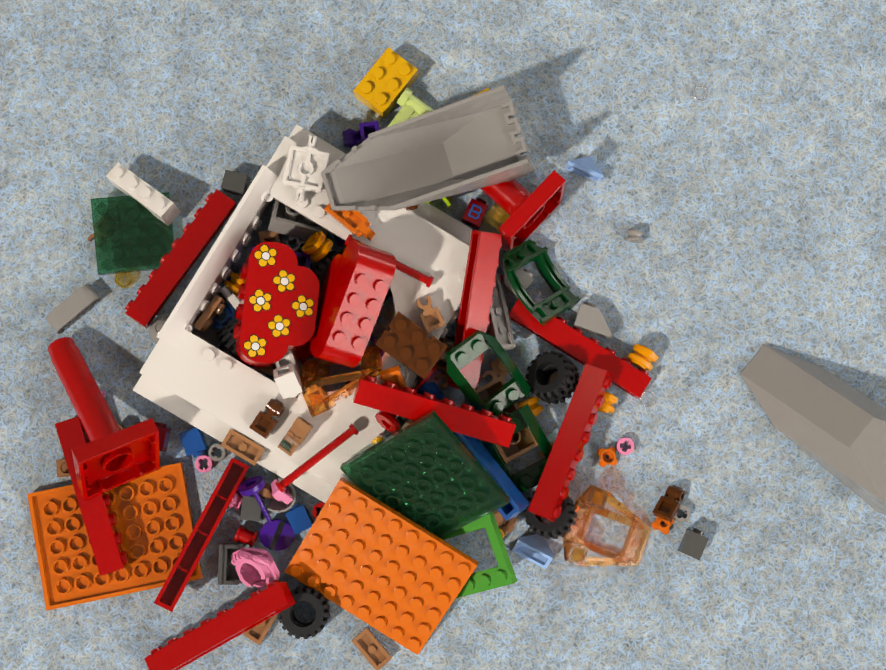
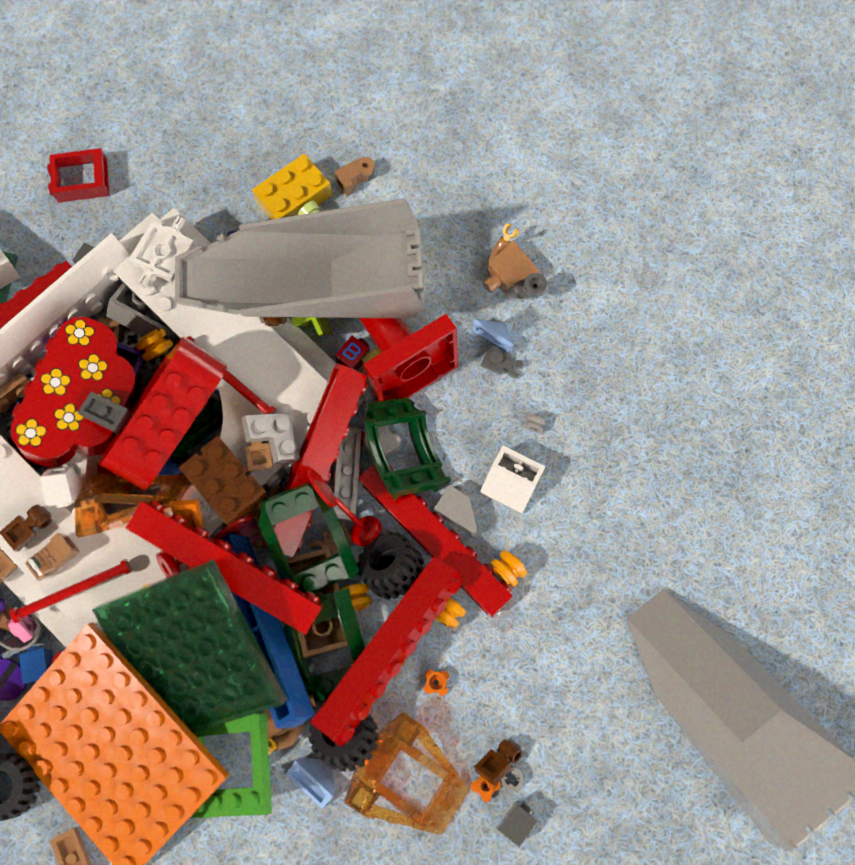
camera: 15 degrees right, 10 degrees down
(206, 123) = (97, 189): none -> red window
(309, 316) = (105, 413): none -> dark grey plate
(352, 221) = (198, 322): orange hinge -> none
(437, 49) = (355, 173): none -> medium nougat leg
(440, 295) = (276, 430): none -> light grey plate
(523, 354) = (364, 529): none -> red piece
(587, 109) = (513, 270): none -> medium nougat torso
(592, 190) = (498, 361): none -> dark grey plate
(627, 451) = (464, 681): bright pink bush -> none
(629, 286) = (512, 479): none -> white slope

